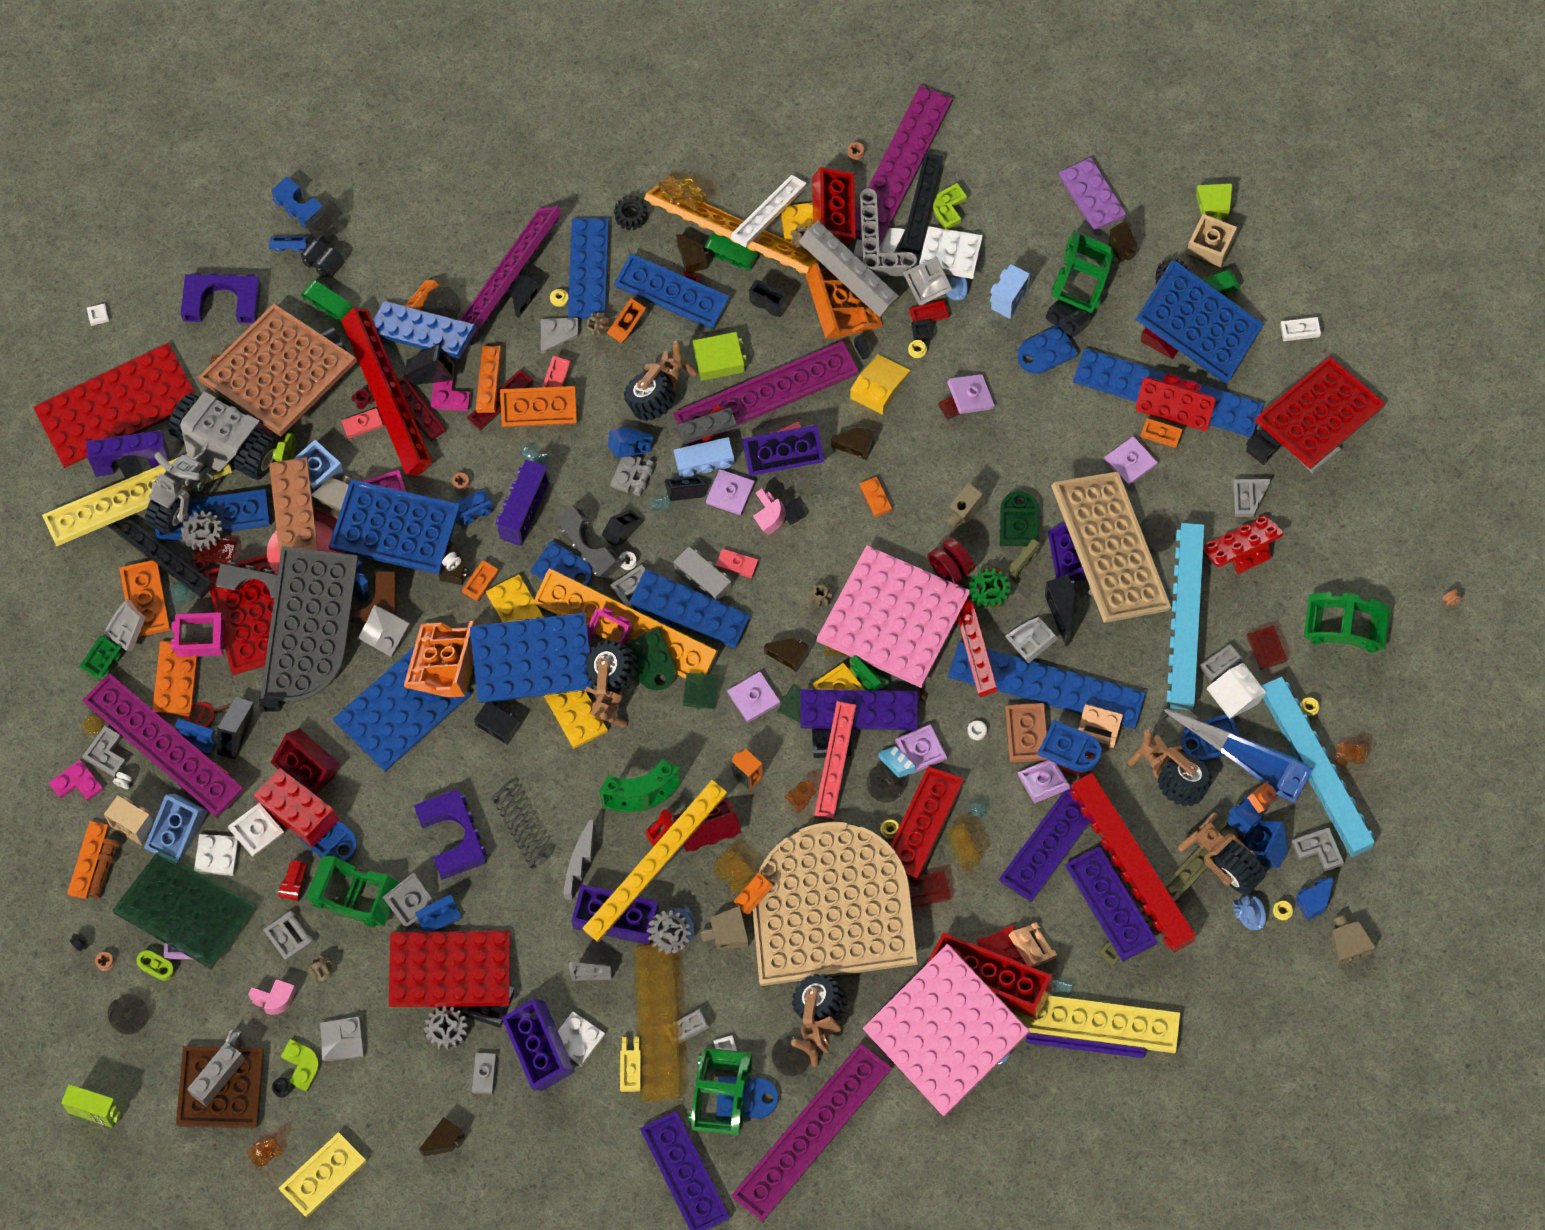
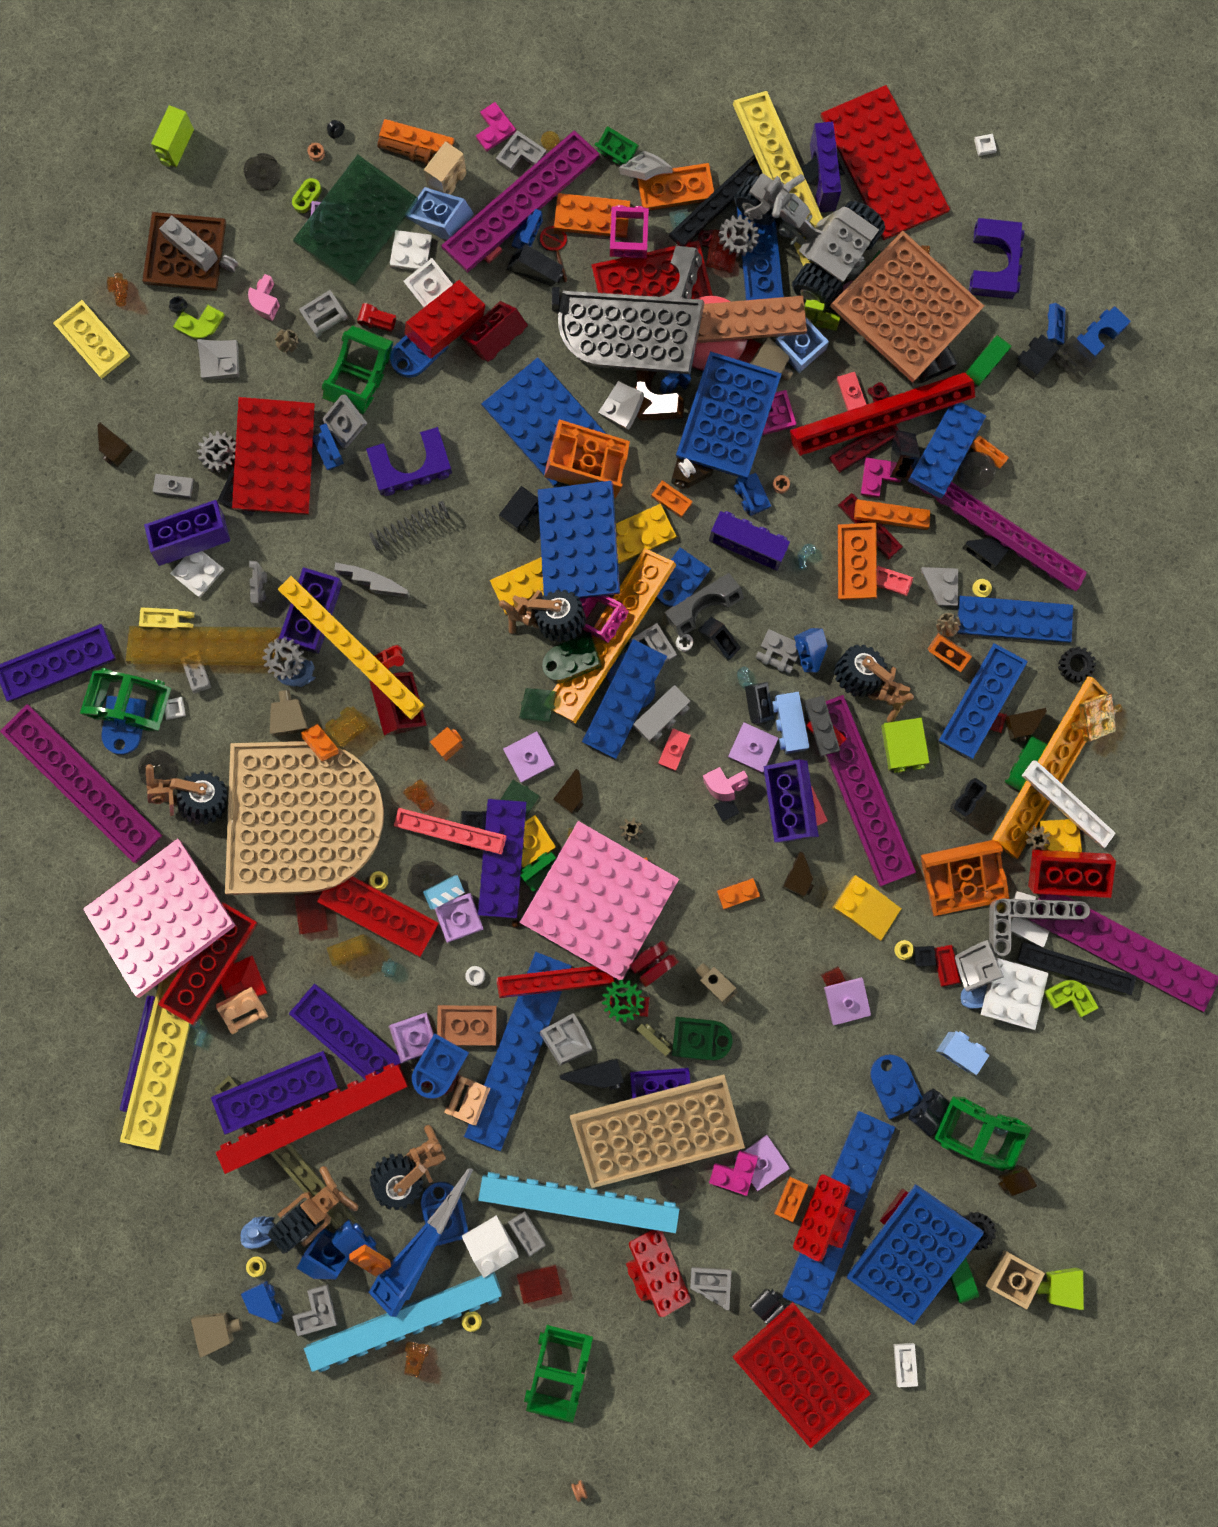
camera: 90 degrees right, 15 degrees up
(122, 780) = (490, 167): white bush -> none
(641, 792) = (428, 638): green window -> none
(848, 268) = (995, 883): light grey brick -> none
(855, 156) = (1148, 900): nougat bush -> none
(861, 347) = (907, 891): black tile -> none
(1092, 194) = (1080, 1153): medium lavender plate -> none
(1146, 477) = (735, 1179): none -> dark pink plate

